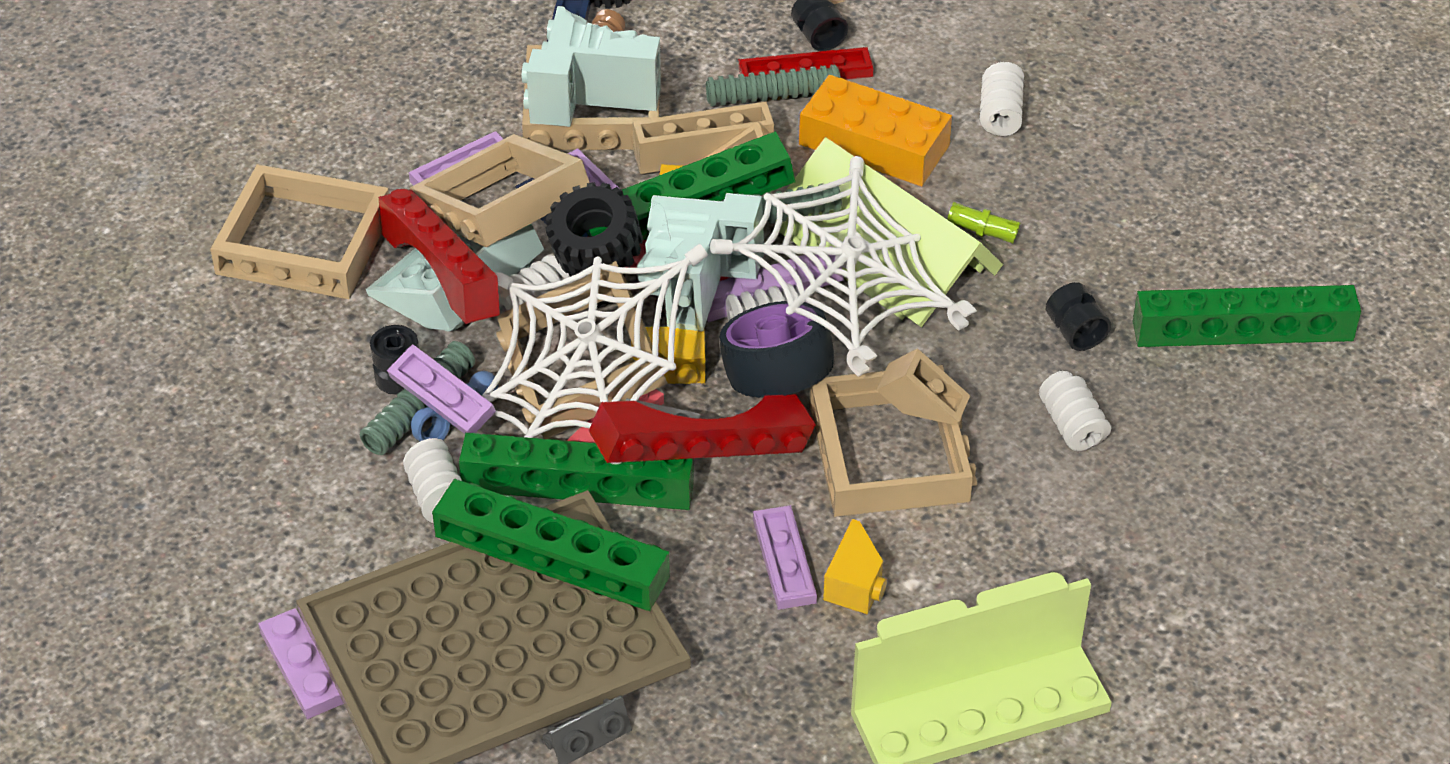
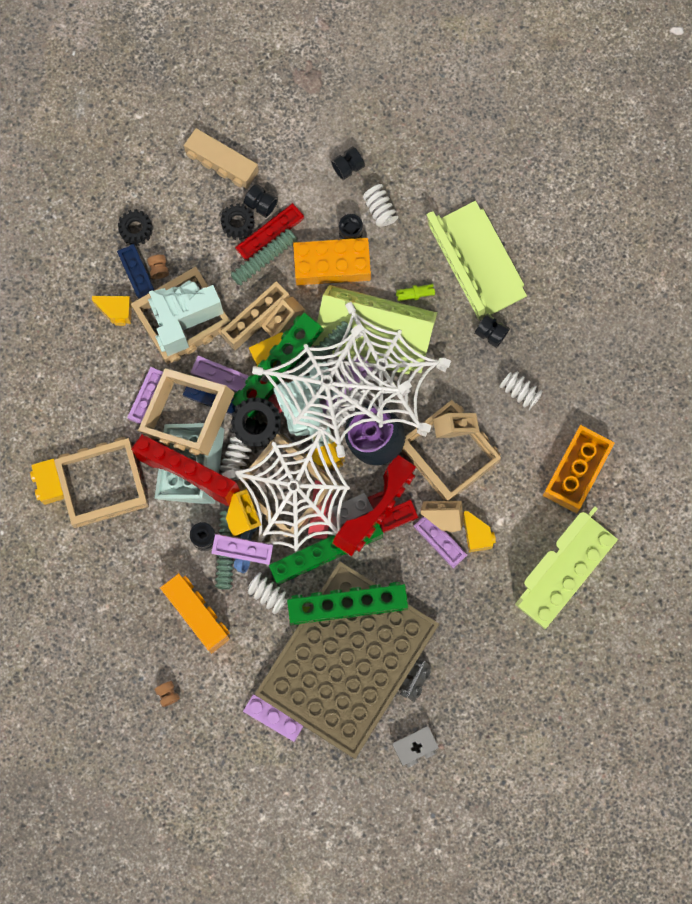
camera: 30 degrees left, 30 degrees up
(159, 537) = (164, 690): none -> medium nougat wheel
(220, 191) = (47, 482): none -> yellow brick
(297, 444) = (193, 611): none -> light orange brick
(477, 342) = (242, 514): none -> yellow slope
(501, 48) = (115, 308): none -> yellow slope
(727, 483) = (397, 516): none -> red plate
(740, 219) = (356, 333): none -> white animal
(756, 22) = (237, 211): none -> black tyre
(816, 513) = (444, 514): none -> tan slope
(936, 92) = (350, 227): none -> black wheel
(987, 33) = (347, 163): none -> black wheel
(1116, 221) = (477, 259): none -> yellowish green piece
(1116, 548) = (578, 469): none -> light orange brick
(1246, 316) = (565, 287): green brick -> none

